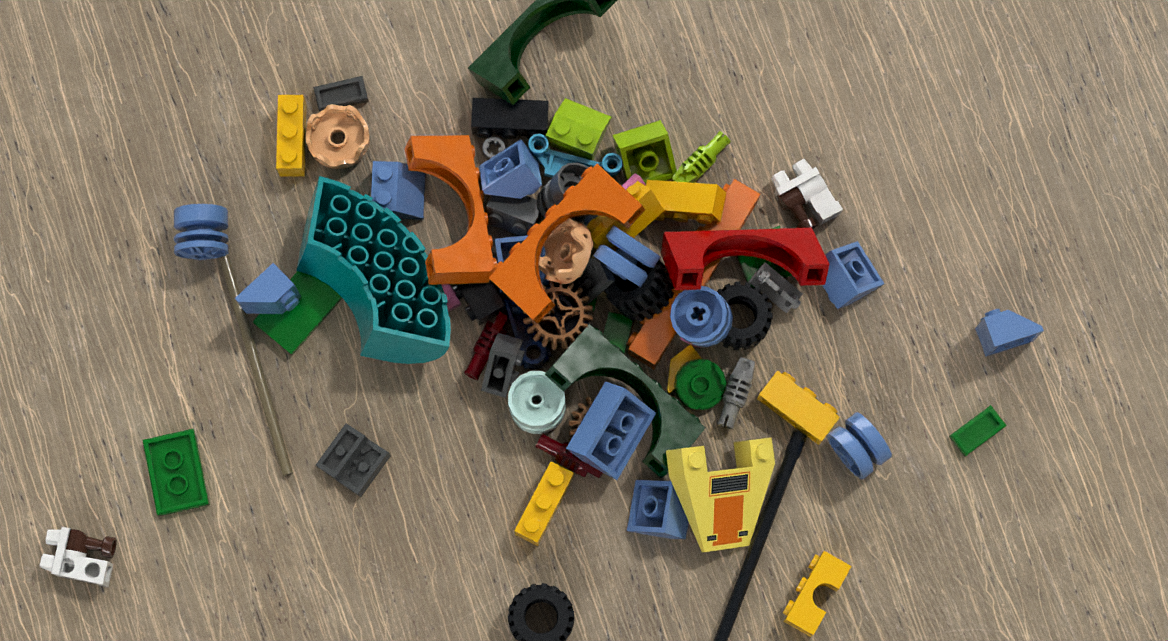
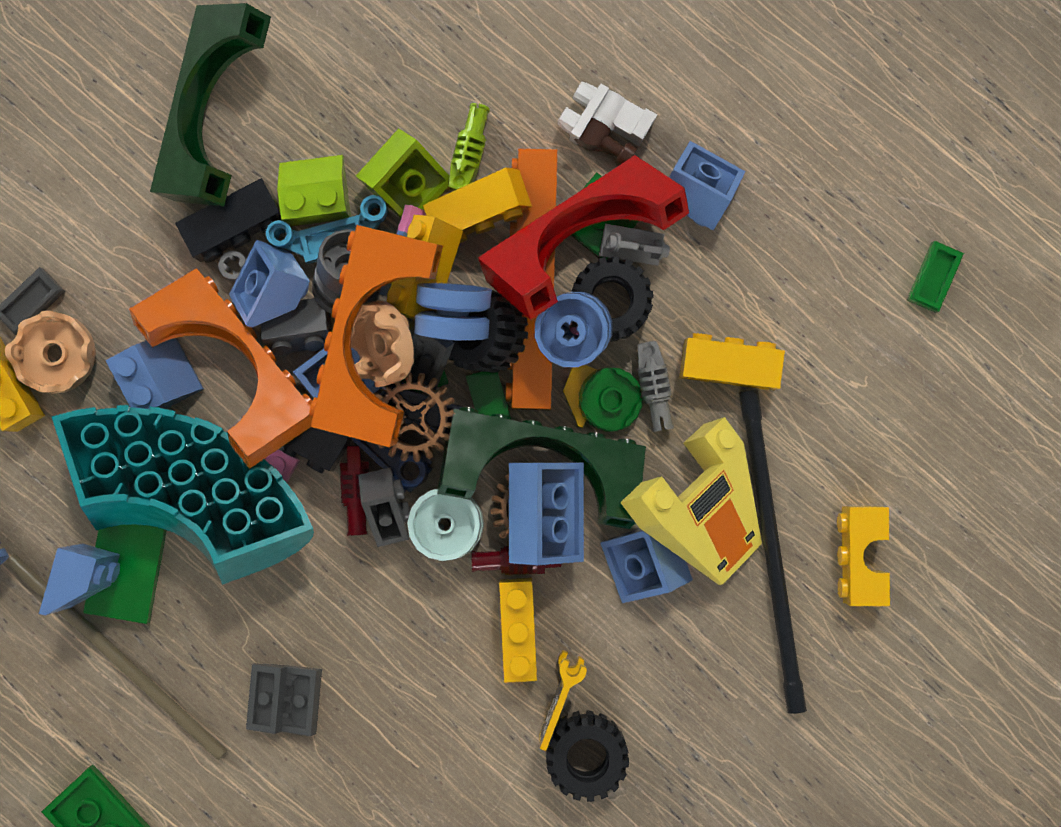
camera: 30 degrees left, 10 degrees up
(558, 555) = (569, 677): none -> yellow flag
(859, 445) = (824, 370): medium blue wheel -> none
(1005, 331) = (906, 153): medium blue slope -> none

